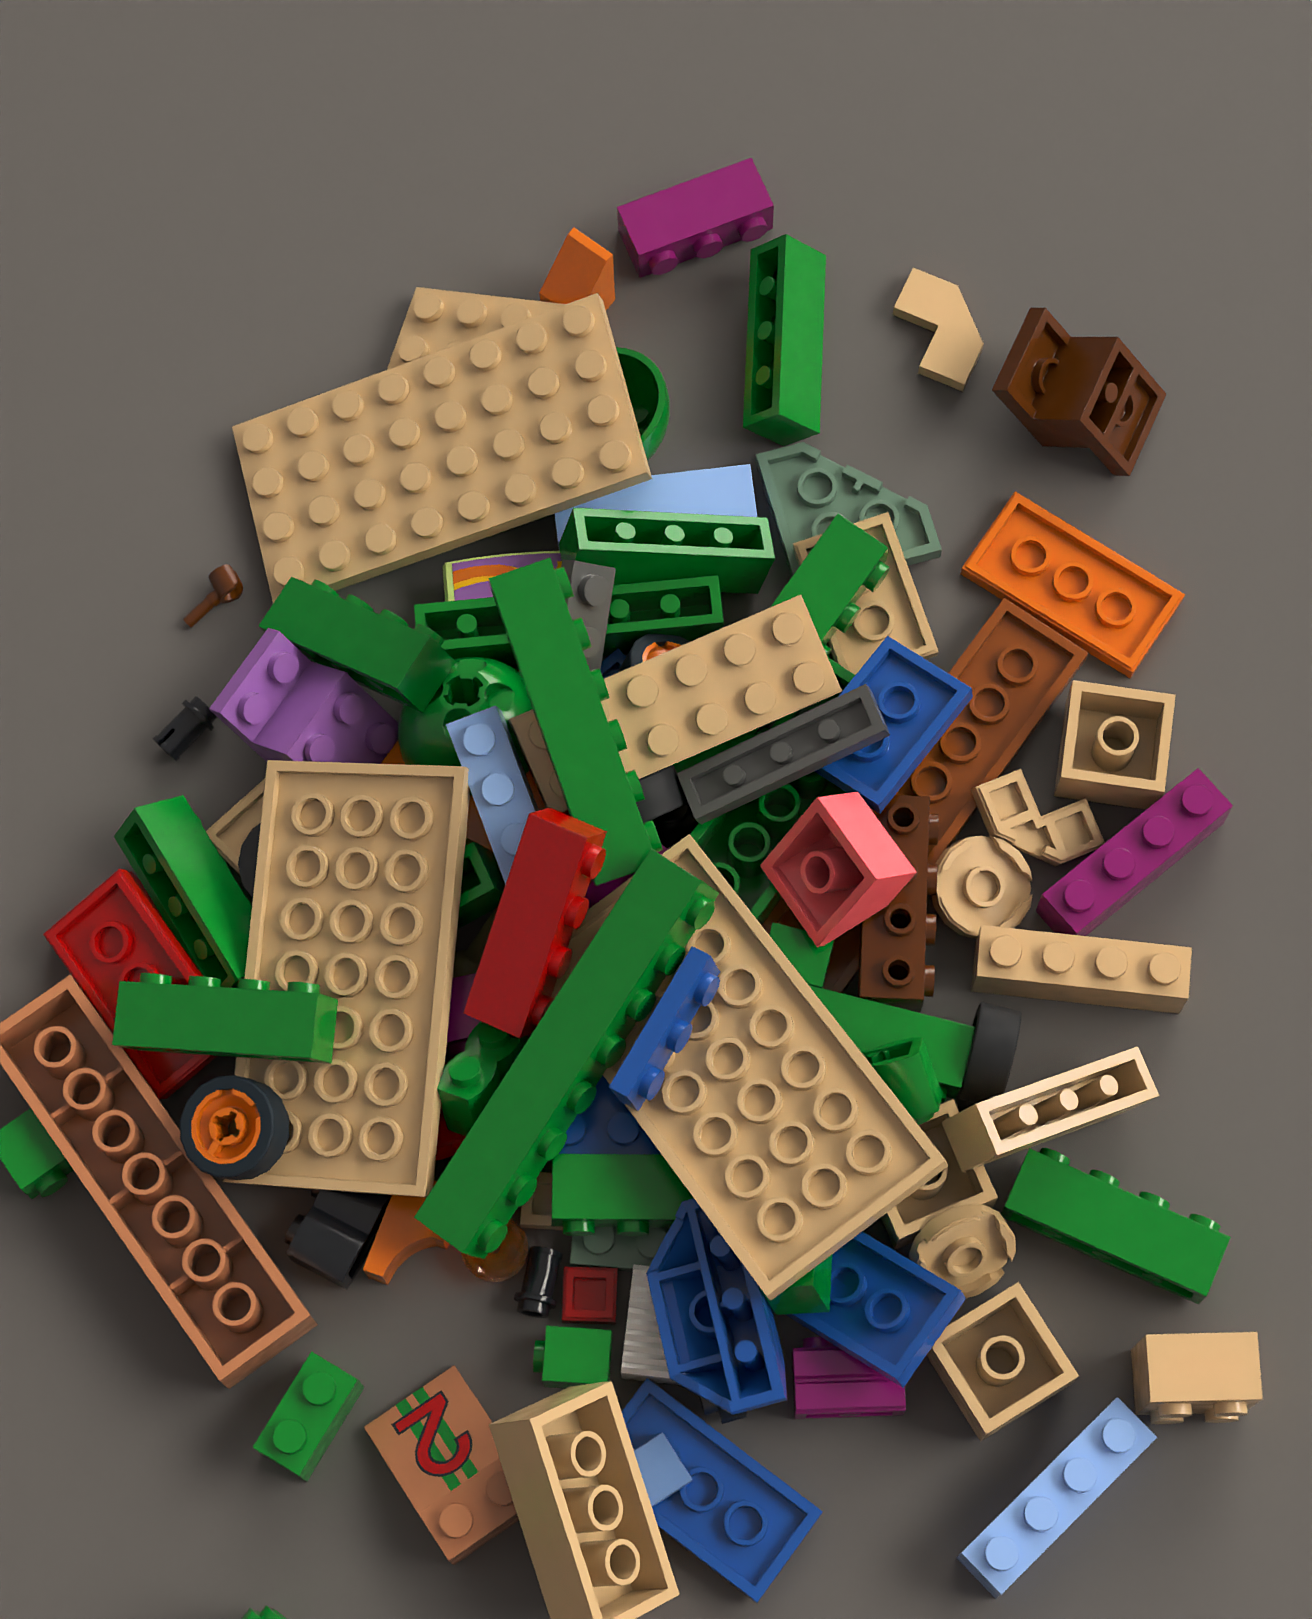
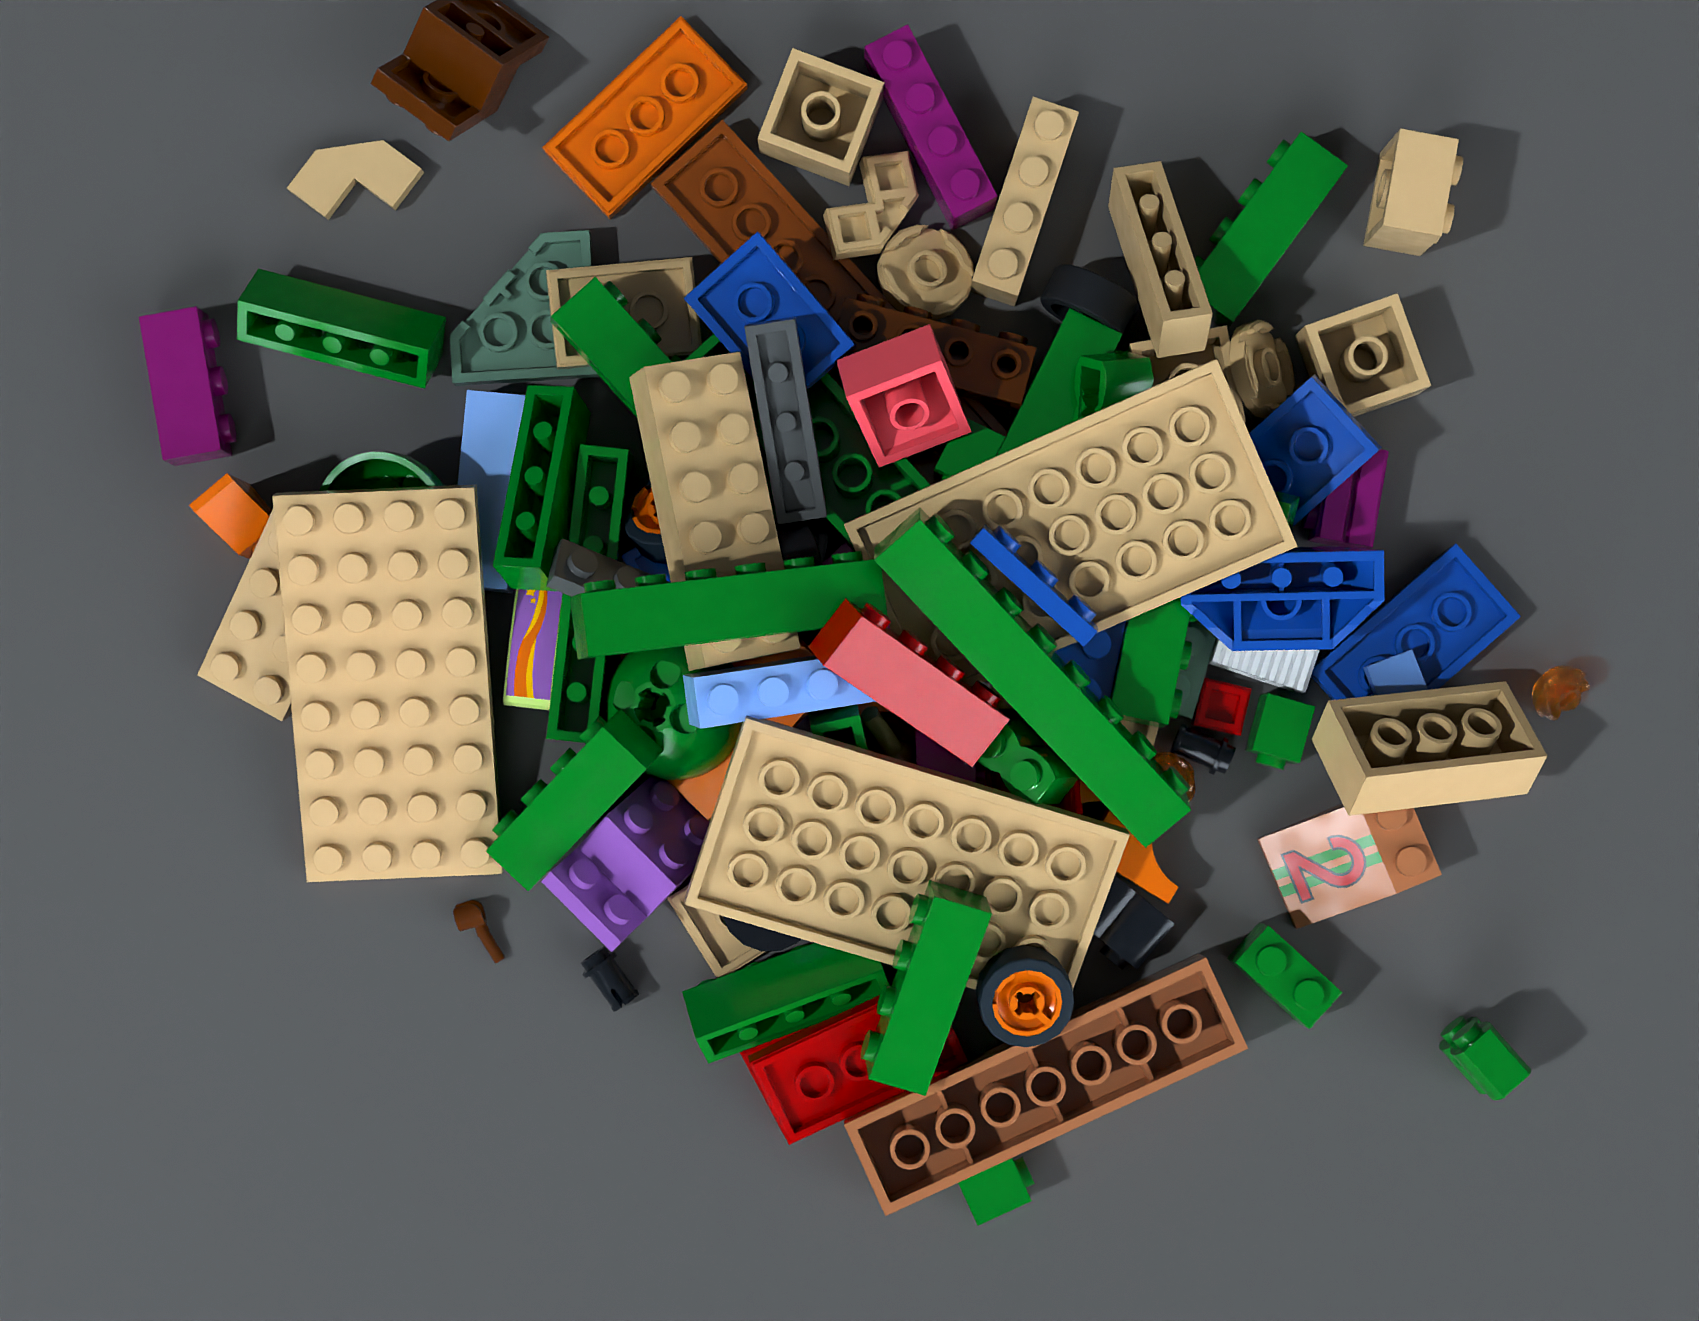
camera: 80 degrees left, 15 degrees up
(1056, 1497) = (1485, 340): light blue brick -> none

